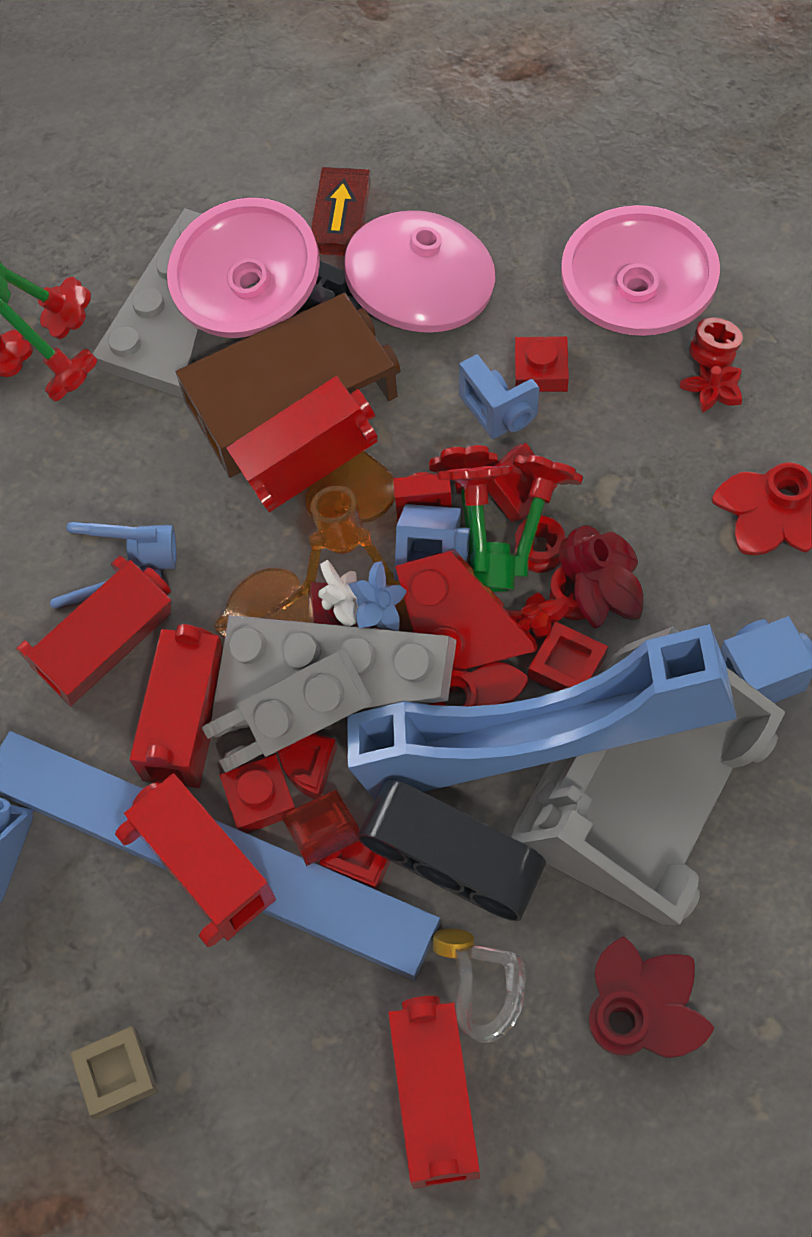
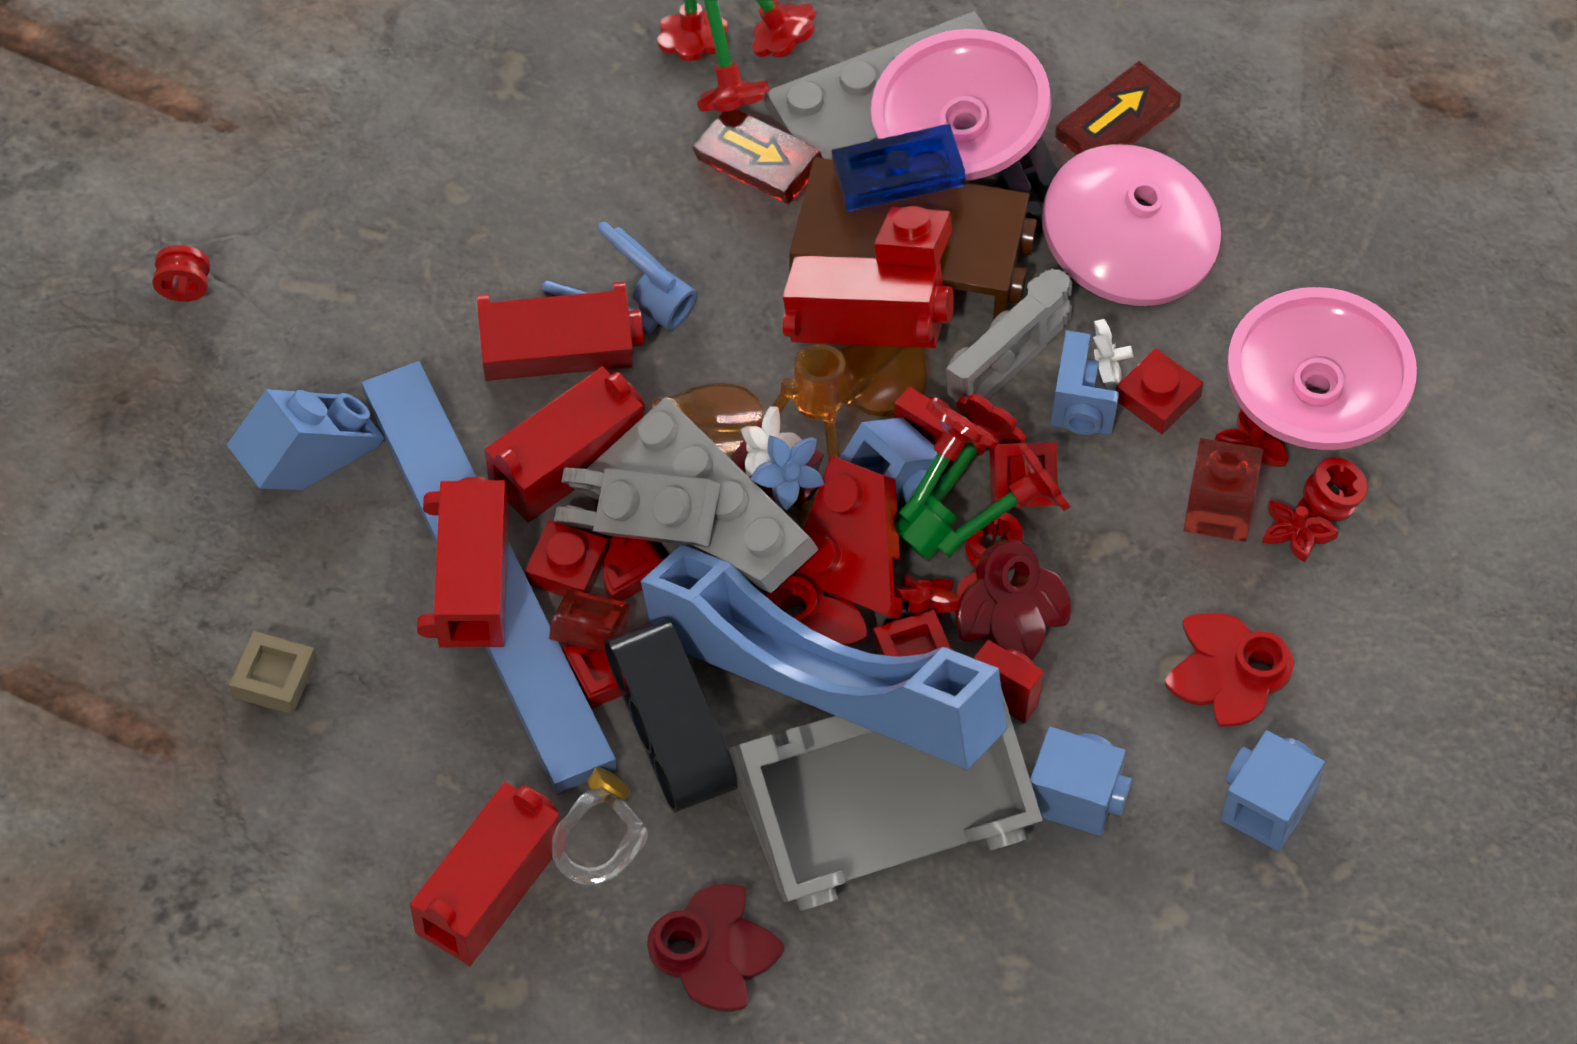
camera: 35 degrees right, 5 degrees down
(127, 401) = (757, 154): none -> clear red tile
(246, 334) = (898, 167): none -> clear blue plate
(303, 373) = (913, 237): none -> red plate
(419, 399) = (1012, 339): none -> light grey hinge
(493, 359) = (1108, 355): none -> white plant
(632, 351) = (1252, 435): none -> red plant
(649, 620) = (1018, 678): none -> red plate
(655, 393) = (1223, 489): none -> clear red brick

